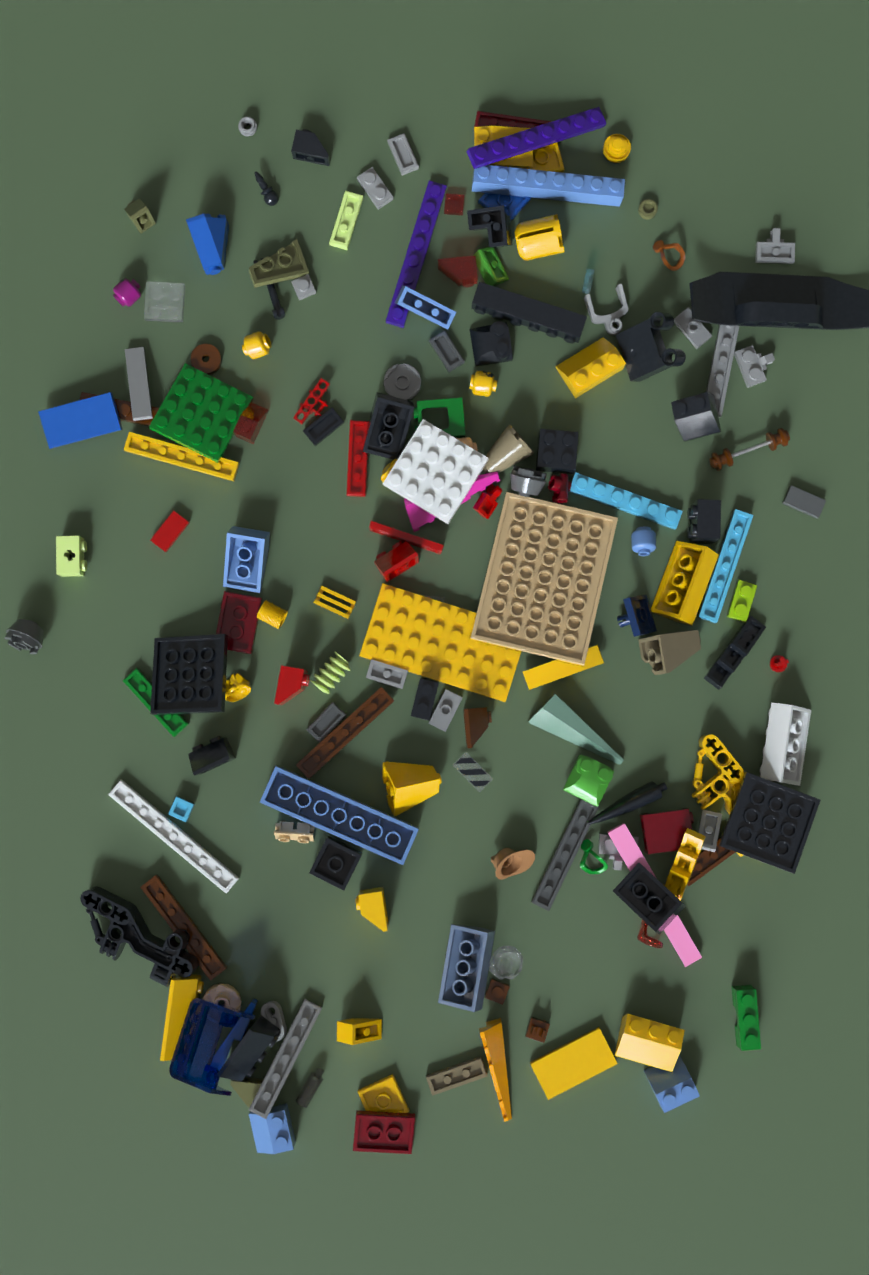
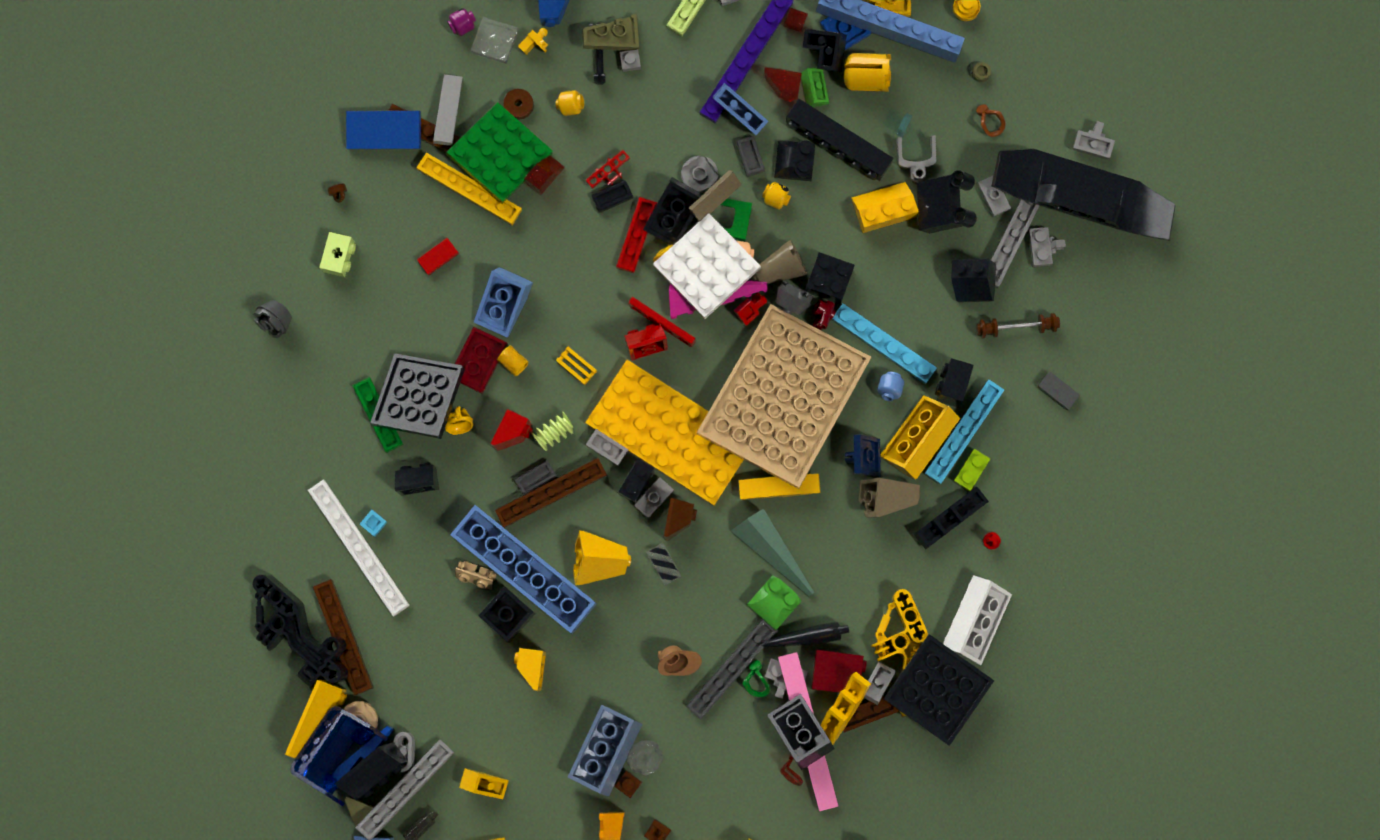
camera: 20 degrees right, 5 degrees down
(51, 492) = (337, 189): none -> reddish brown tile
(202, 291) = (534, 39): none -> yellow piece
(425, 400) = (715, 195): none -> dark tan tile

